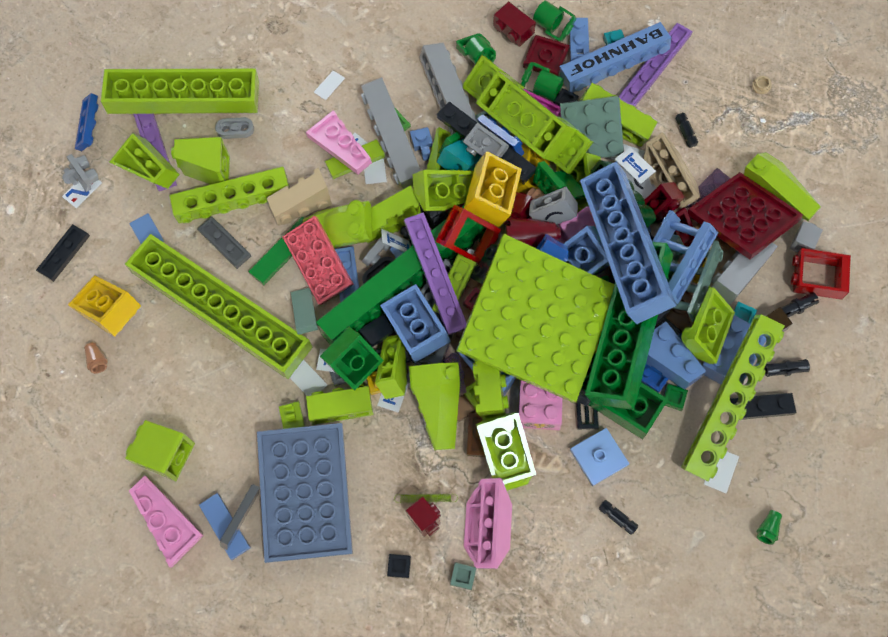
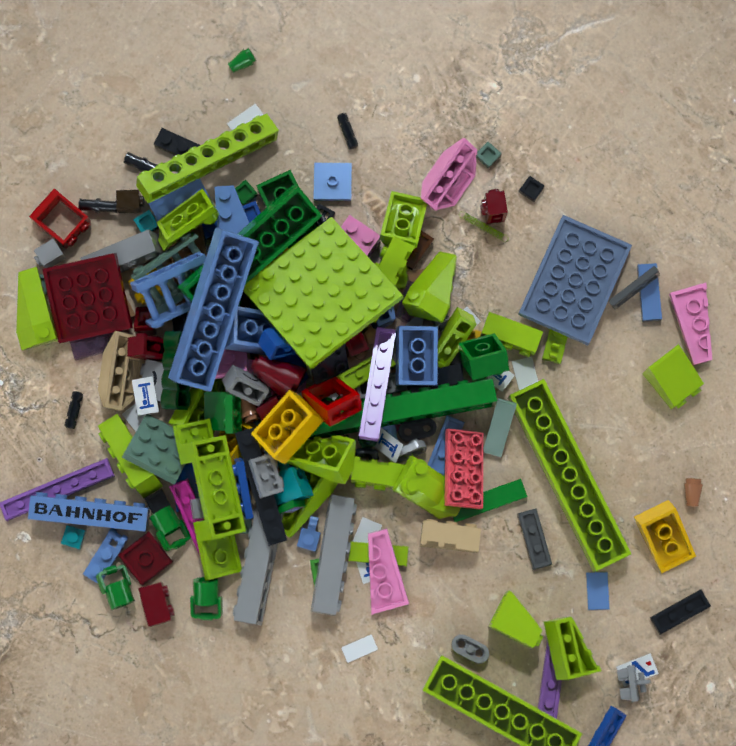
camera: 155 degrees left, 10 degrees up
(182, 201) = (554, 596): lime brick -> none

